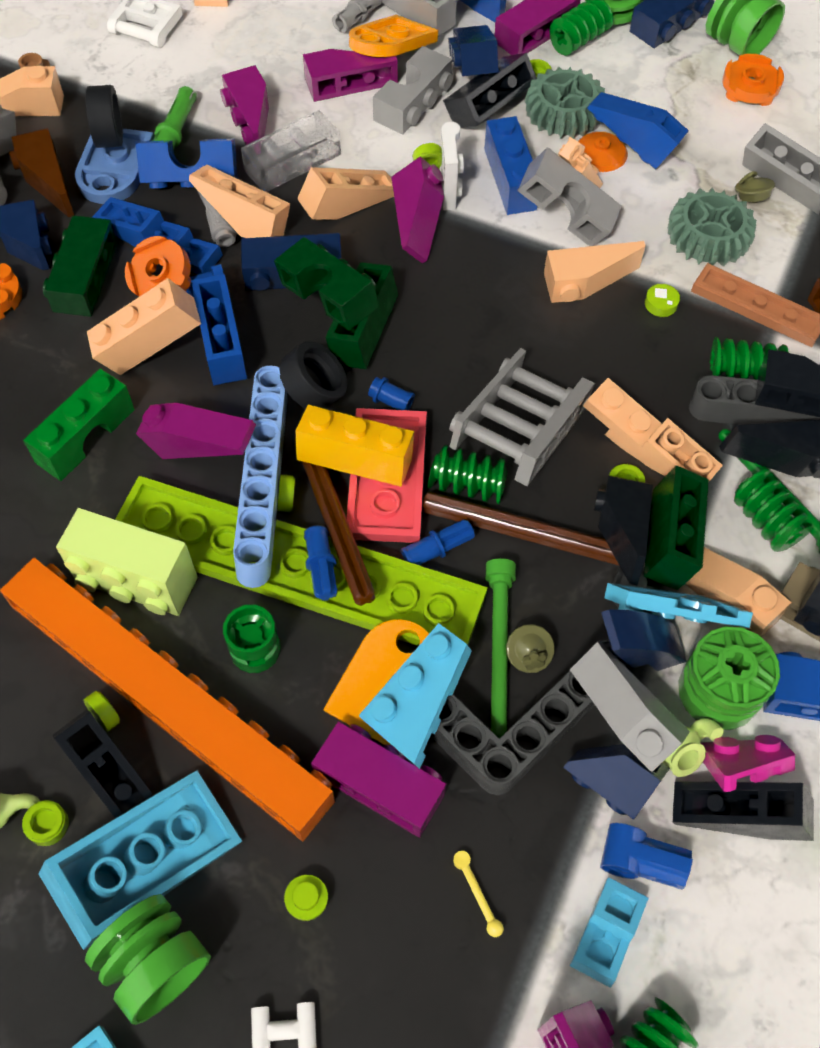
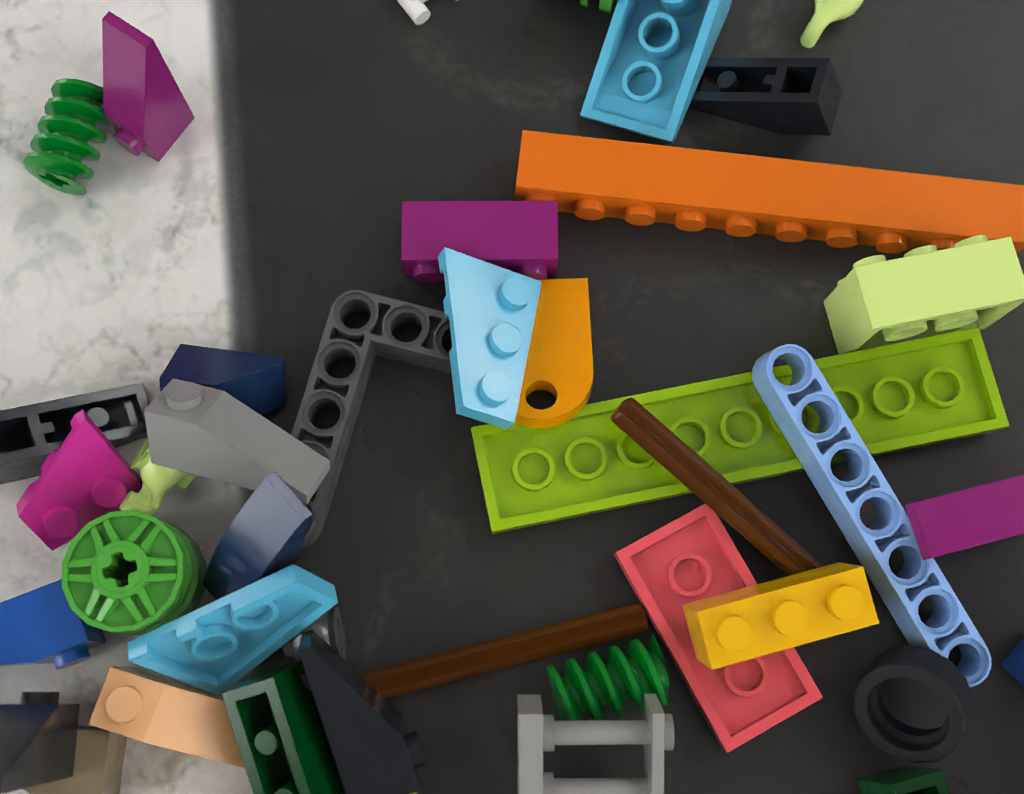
camera: 145 degrees right, 15 degrees up
(45, 823) = (779, 26): lime tile -> none
(102, 710) = (815, 144): lime tile -> none
(251, 638) = (719, 301): green wheel -> none
(286, 493) = (819, 515): lime tile -> none
(306, 897) = (480, 97): lime plate -> none
(320, 562) = (706, 430): blue axle -> none
(390, 394) = (794, 757): blue pin -> none
(438, 543) = (589, 561): blue axle -> none
(462, 862) = (348, 219): light yellow hinge -> none
(500, 575) = (484, 559): bright green piece -> none
(530, 648) = (398, 486): olive hat -> none
(609, 932) = (162, 232): medium azure slope -> none
(633, 854) = (168, 317): blue piece -> none

